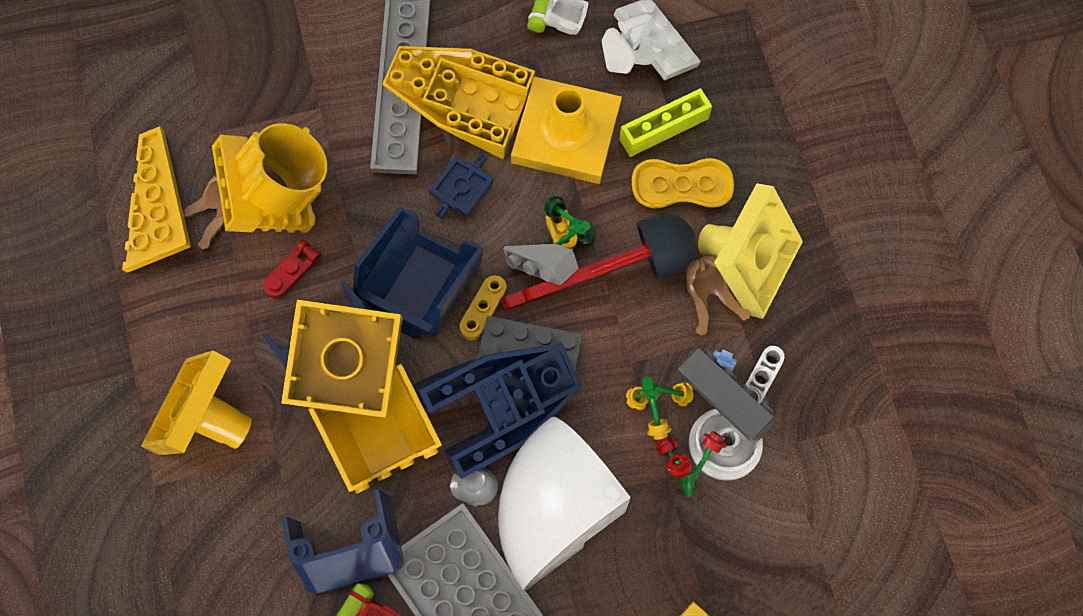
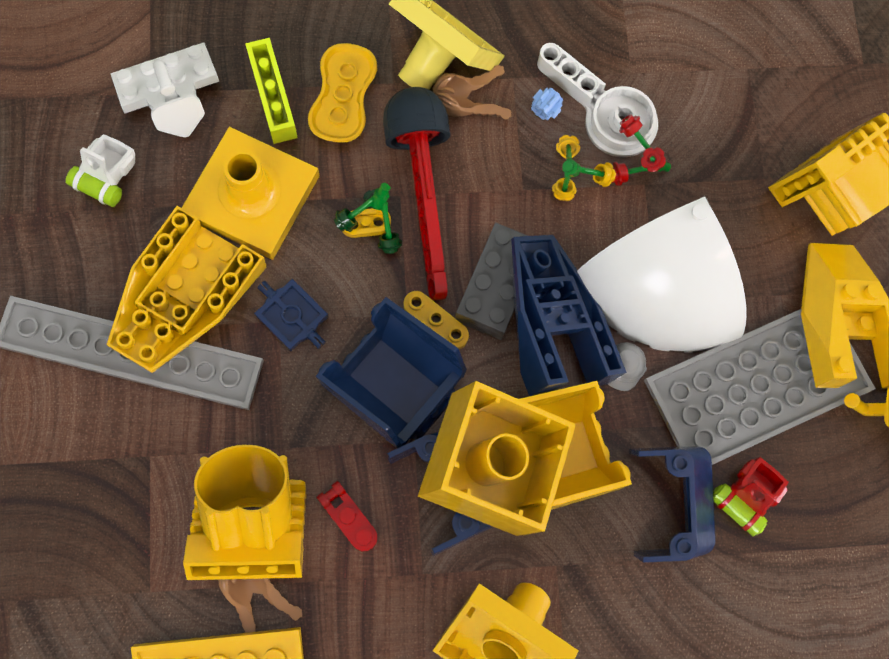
camera: 85 degrees left, 5 degrees up
(544, 261) = (407, 241): light grey slope -> none
(726, 396) = (594, 96): dark grey piece -> none

